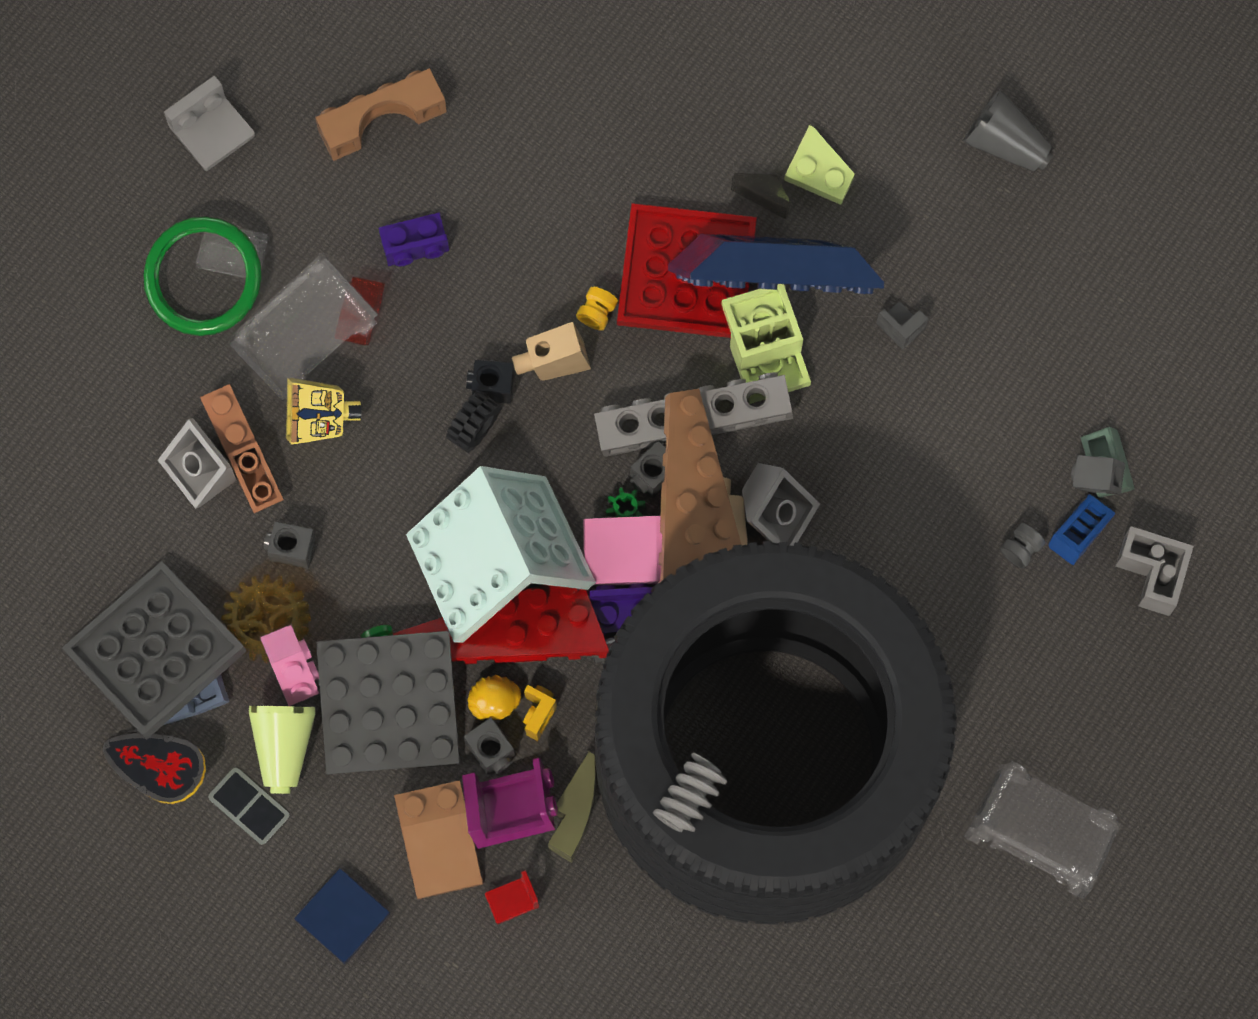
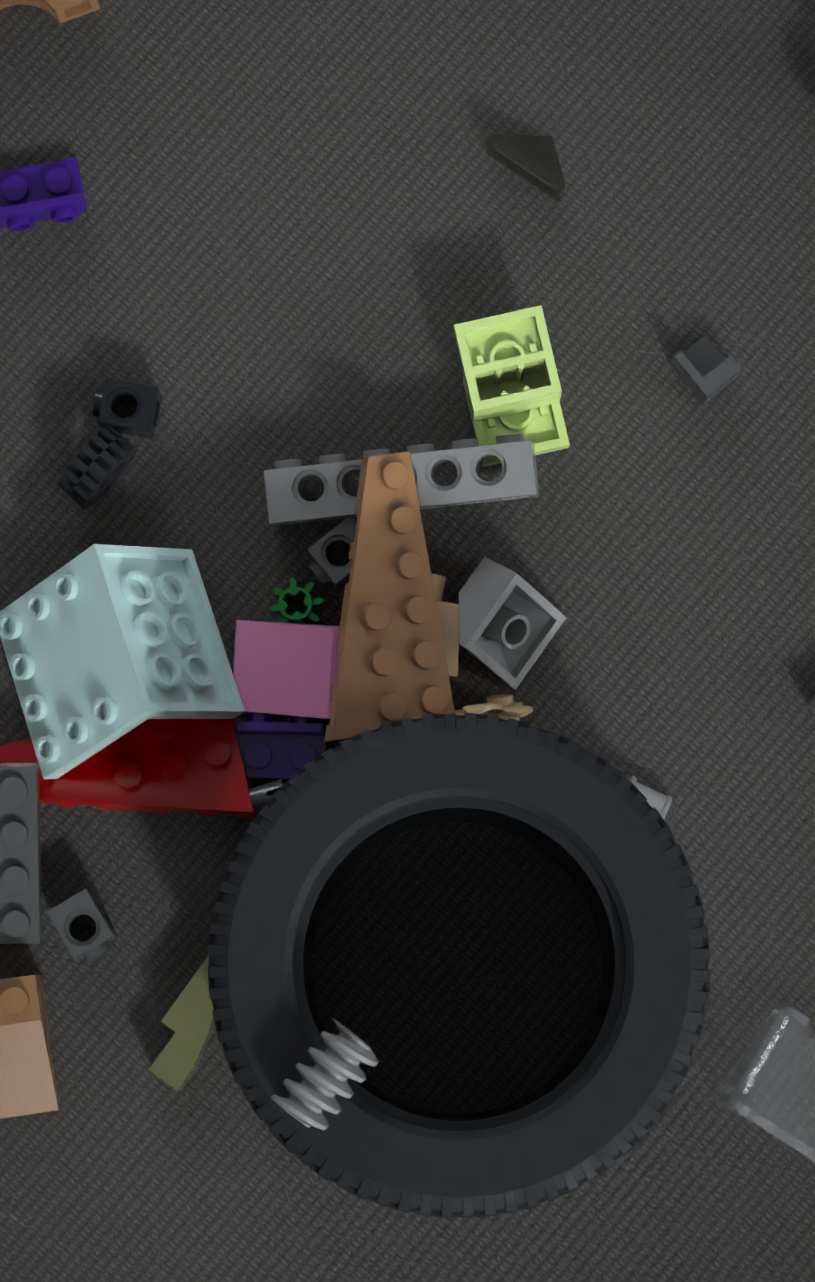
camera: 10 degrees right, 10 degrees up
(494, 698) = (93, 858): yellow hair -> none
(509, 805) = (100, 1012): magenta panel -> none
(512, 899) = (95, 1137): red bracket -> none
(539, 717) = (152, 889): yellow bracket -> none
(554, 353) = (233, 376): tan torso -> none
(597, 308) = (283, 314): yellow wheel -> none
(652, 294) = (410, 265): red plate -> none
(774, 261) = (525, 281): dark blue slope -> none
(819, 168) = (613, 133): yellowish green wing -> none

